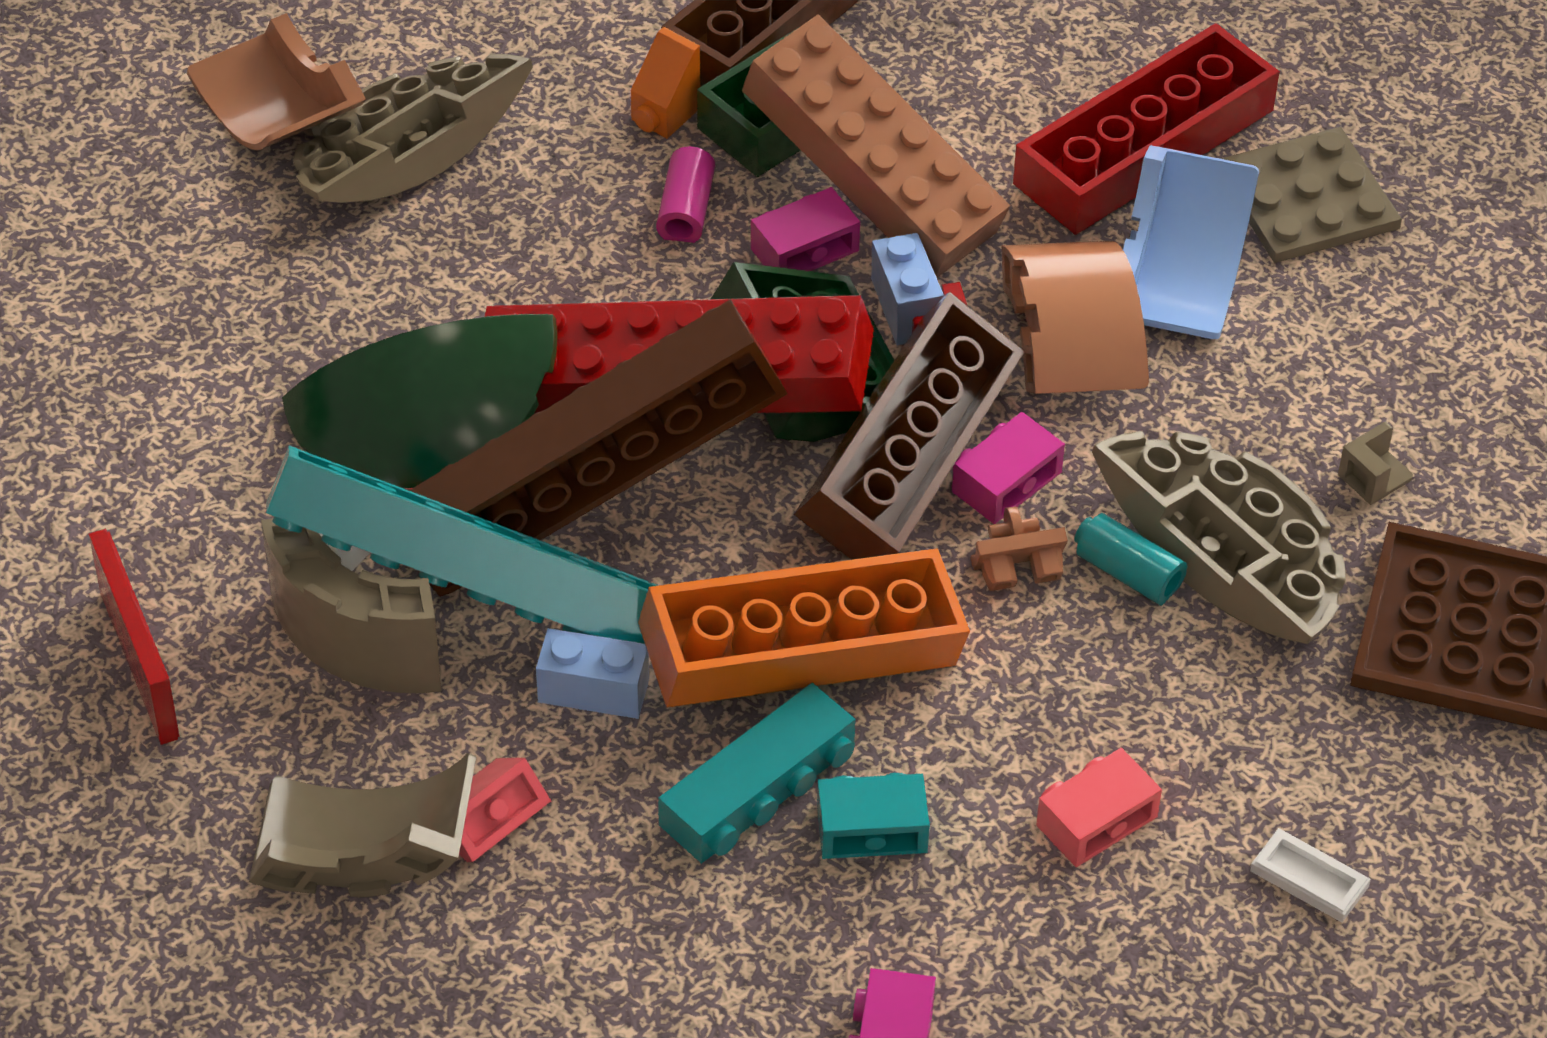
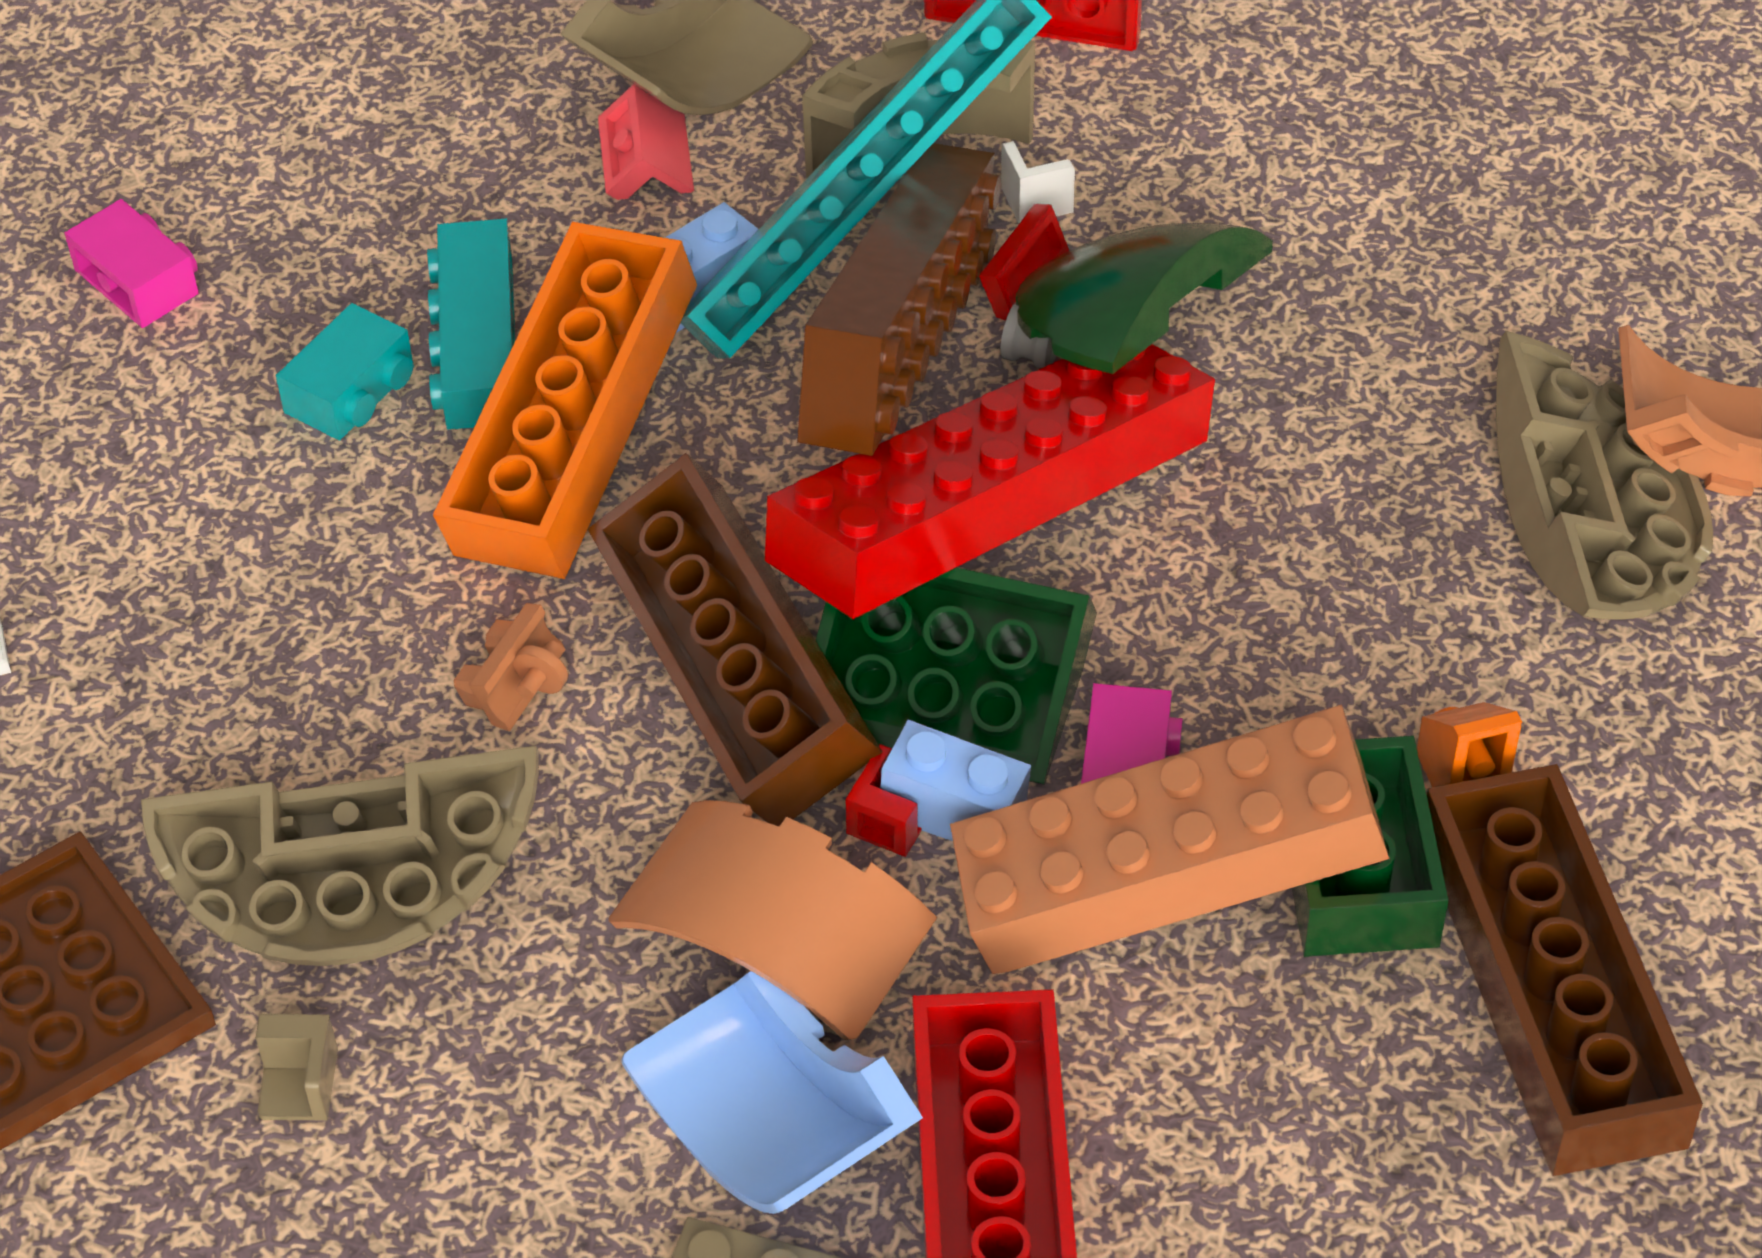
camera: 130 degrees right, 0 degrees up
(686, 195) = (1278, 681): dark pink brick -> none
(1007, 467) = (627, 725): dark pink brick -> none
(1098, 806) = (175, 532): coral brick -> none
(1130, 557) = (385, 749): teal brick -> none

